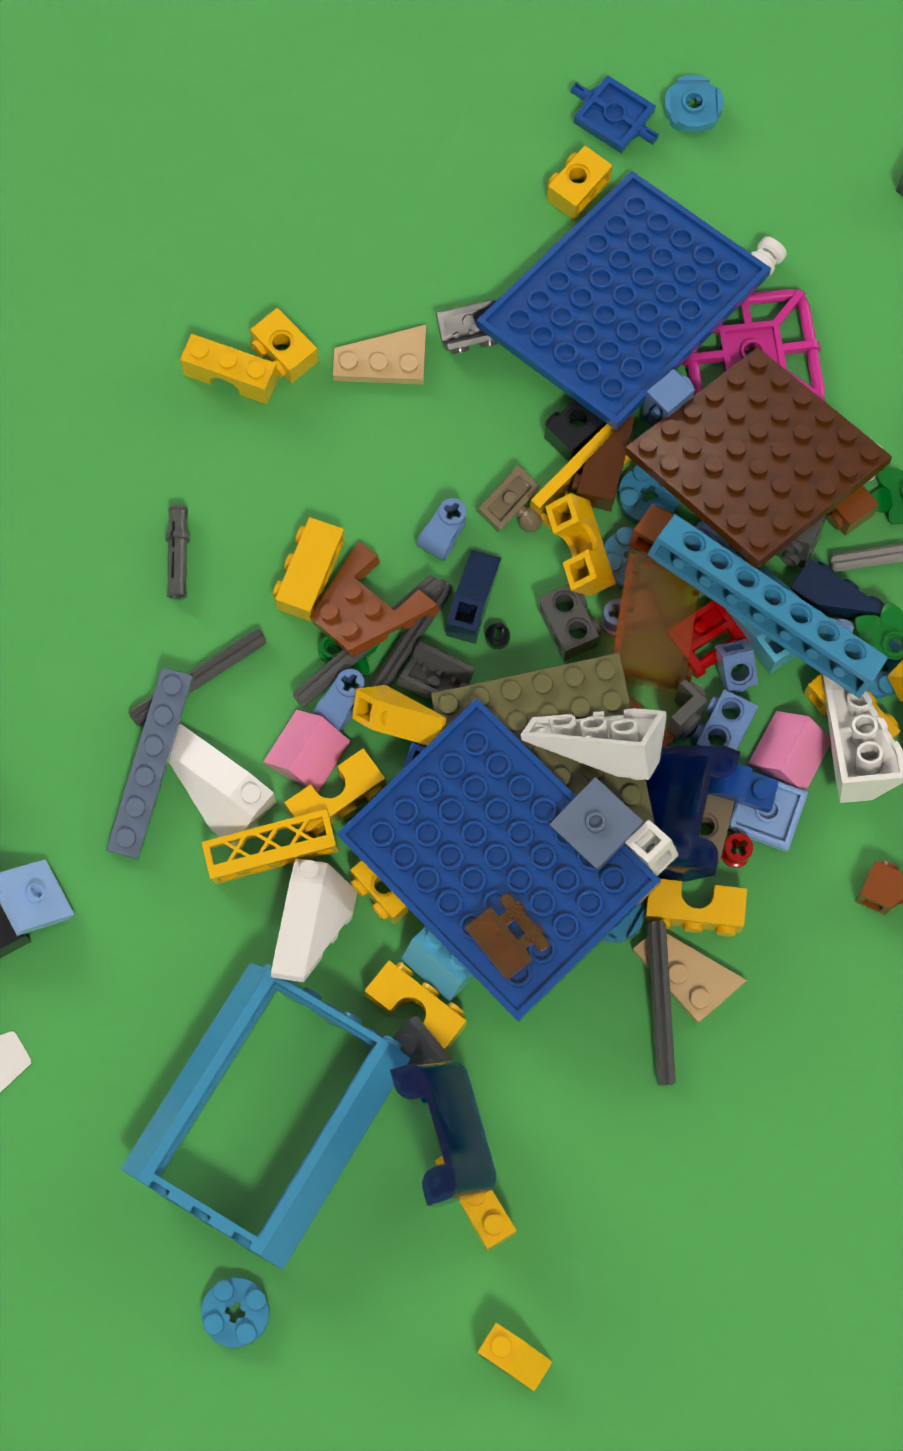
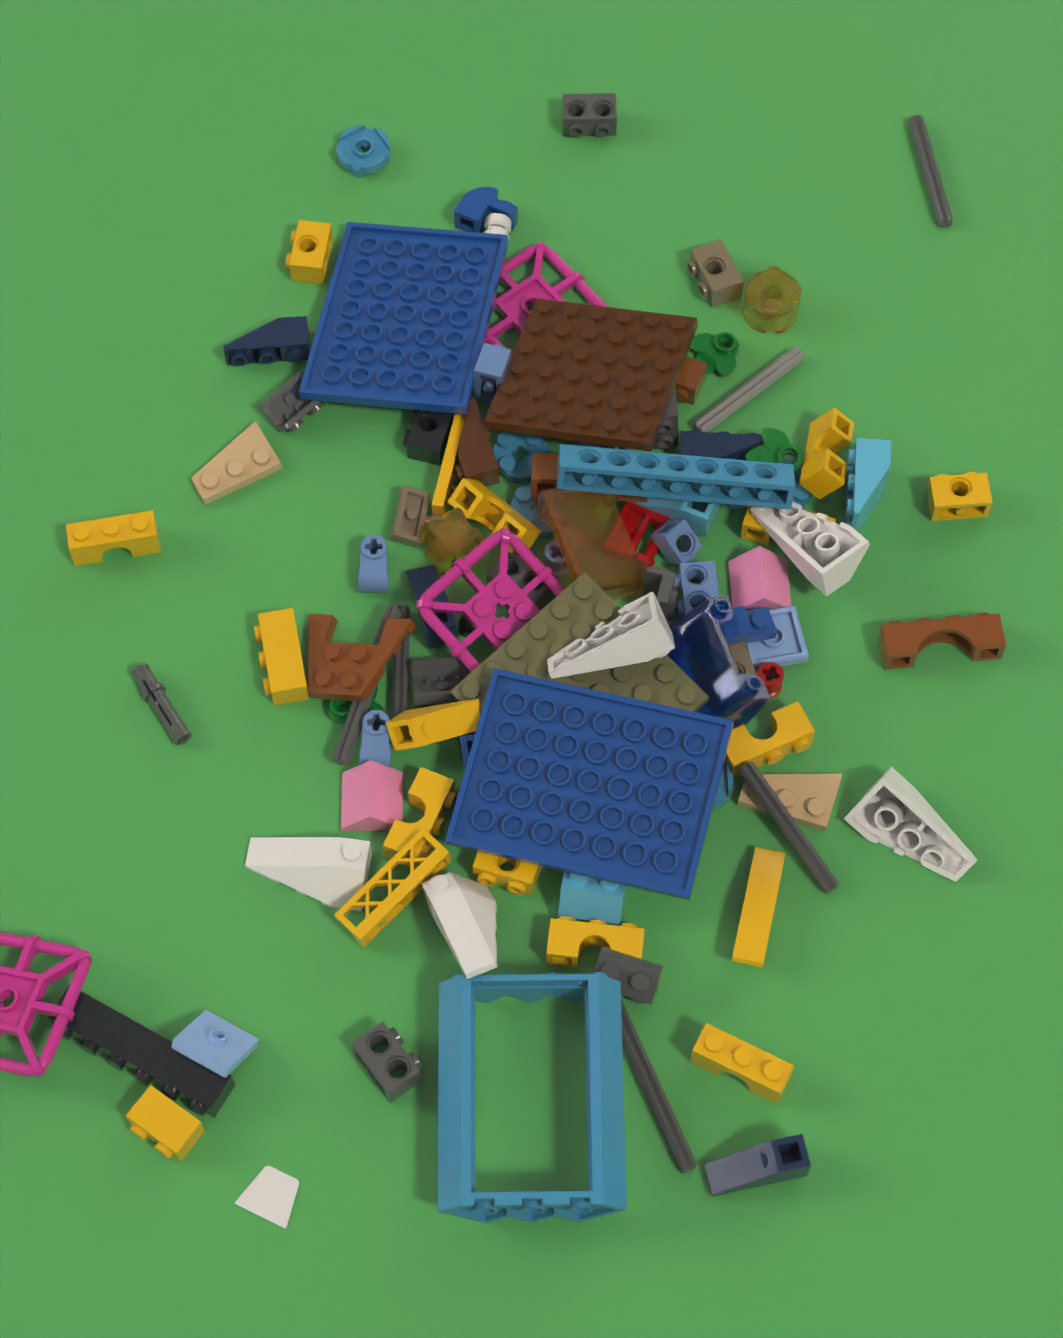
camera: 30 degrees left, 10 degrees down
(150, 763) = (247, 881): sand blue plate -> none
(160, 1004) = (381, 1064): none -> dark grey brick
(210, 668) = (241, 793): dark grey axle -> none
(245, 1329) = (595, 1293): dark azure plate -> none
(279, 330) = (137, 486): yellow brick -> none
(382, 1178) = (656, 1095): none -> dark grey axle
(428, 1299) = (759, 1166): none -> dark blue slope
(458, 1127) = (727, 1033): windscreen -> none
(490, 255) = (275, 342): none -> dark blue slope
(500, 944) = (637, 844): clear orange plate -> none
(509, 629) = (481, 607): none -> dark pink plate
(514, 1357) = (854, 1169): yellow slope -> none
(526, 547) = (448, 539): none -> clear yellow brick
(585, 1061) = (758, 907): none -> yellow slope
(596, 824) = (654, 706): sand blue plate -> none
(614, 114) = (305, 188): blue plate -> none
(652, 847) = (710, 698): white brick -> none
(768, 221) = (479, 203): none -> blue brick
(774, 1059) = (905, 822): none -> white wedge

